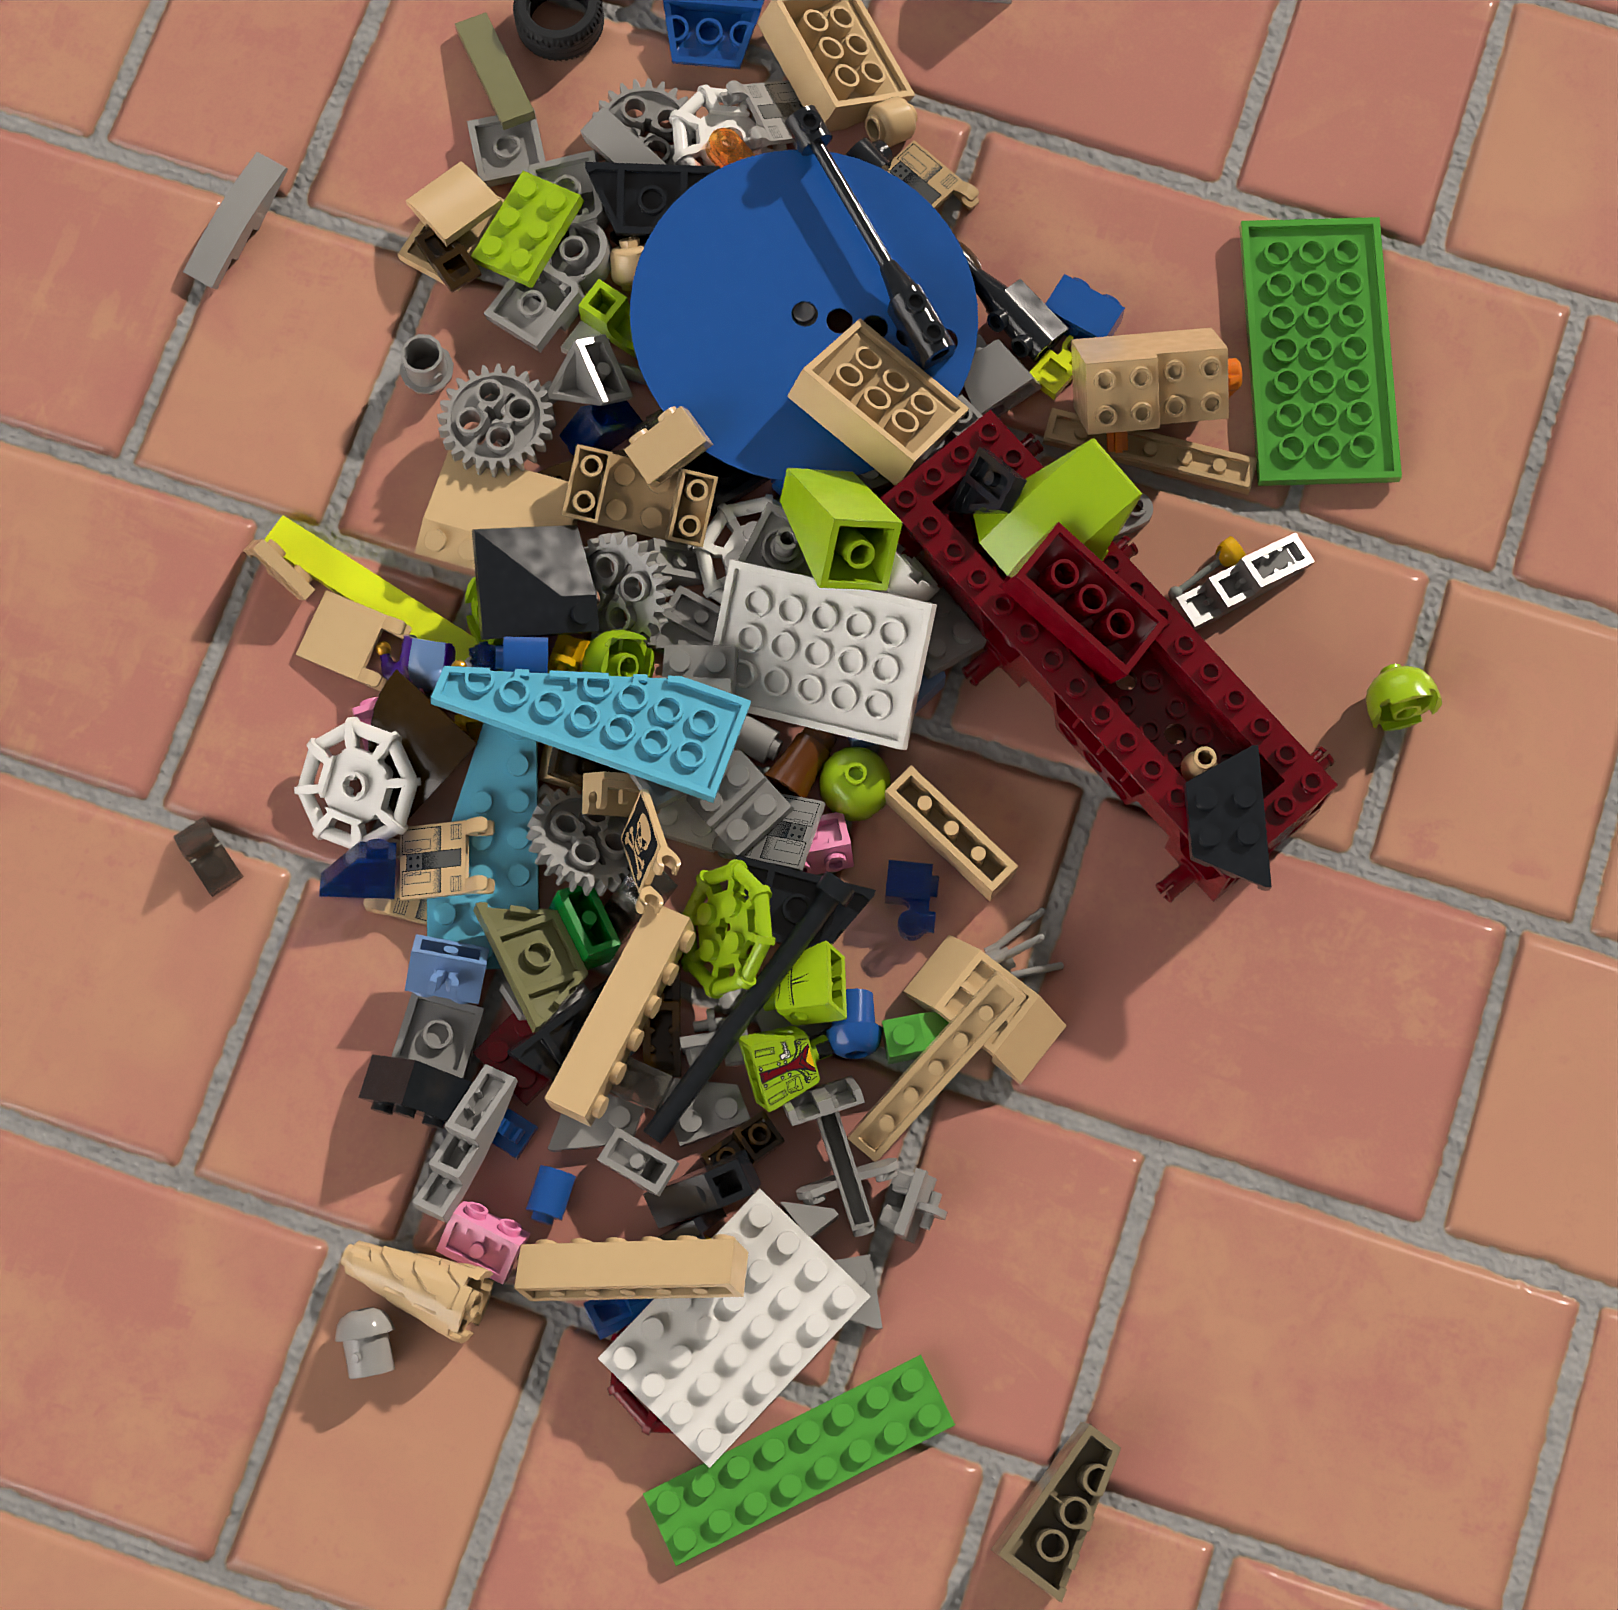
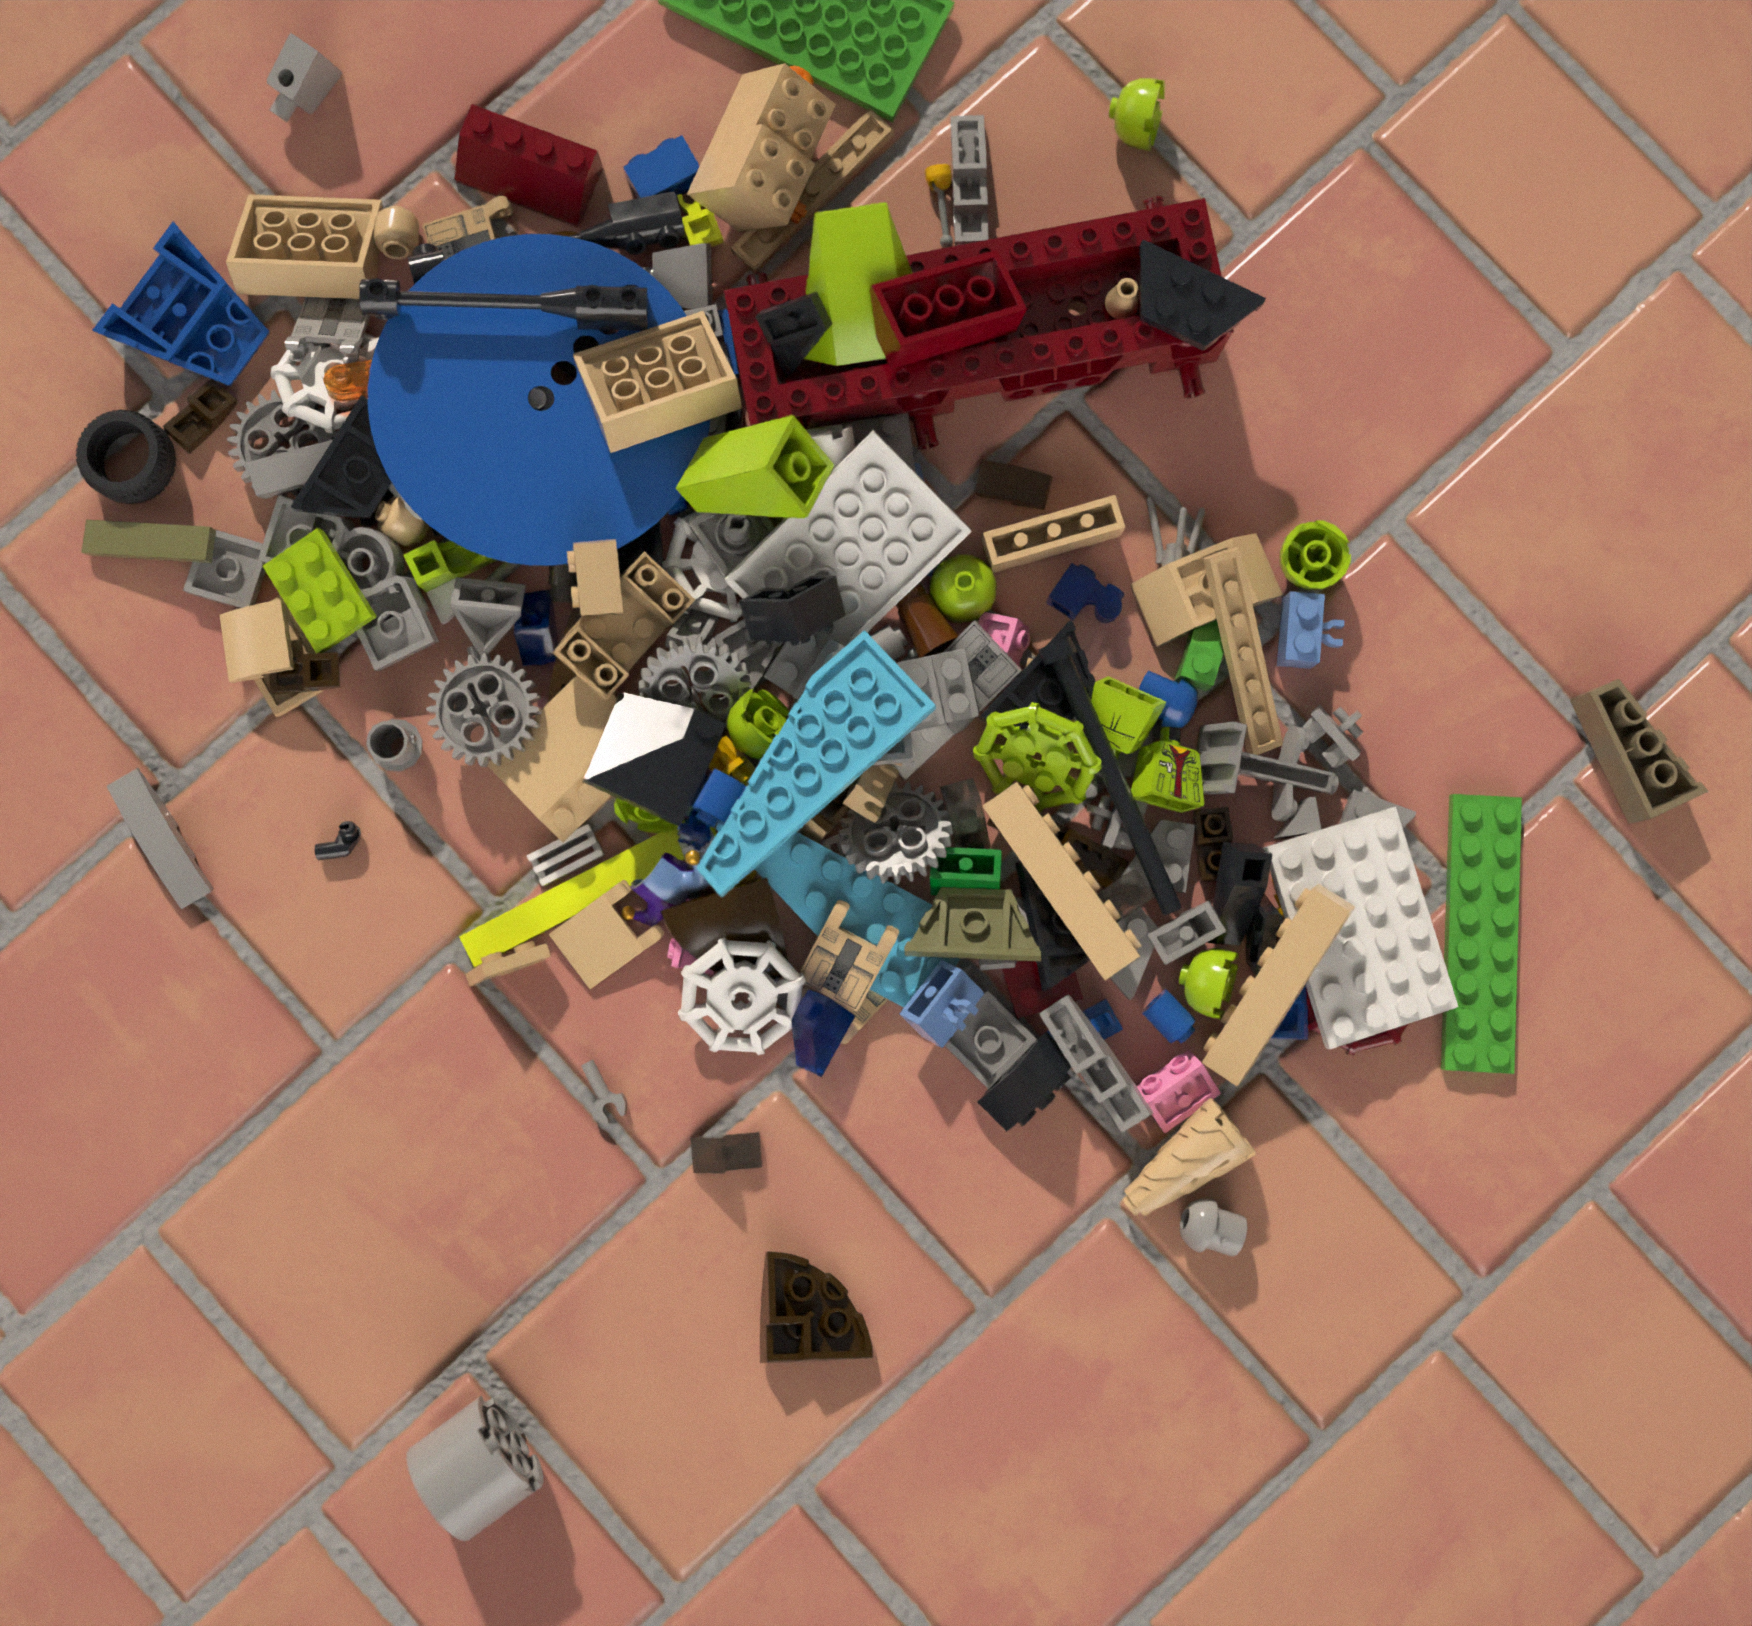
camera: 60 degrees left, 10 degrees up
(92, 1010) = (807, 1314): none -> dark brown brick
(204, 718) = (603, 1094): none -> light grey bar
(321, 374) = (342, 846): none -> black arm
(384, 551) = (539, 868): none -> white tile
(605, 1211) = (1209, 981): none -> lime cylinder
(630, 55) = (202, 416): none -> dark brown slope
(647, 851) = (945, 785): tan flag -> none
(734, 632) = (794, 611): none -> black brick
(980, 775) = (1014, 484): none -> dark brown slope
(996, 1117) = (1302, 630): none -> medium blue brick
(1018, 196) = (526, 165): none -> dark red slope
(1071, 1086) = (1315, 555): none -> lime cylinder

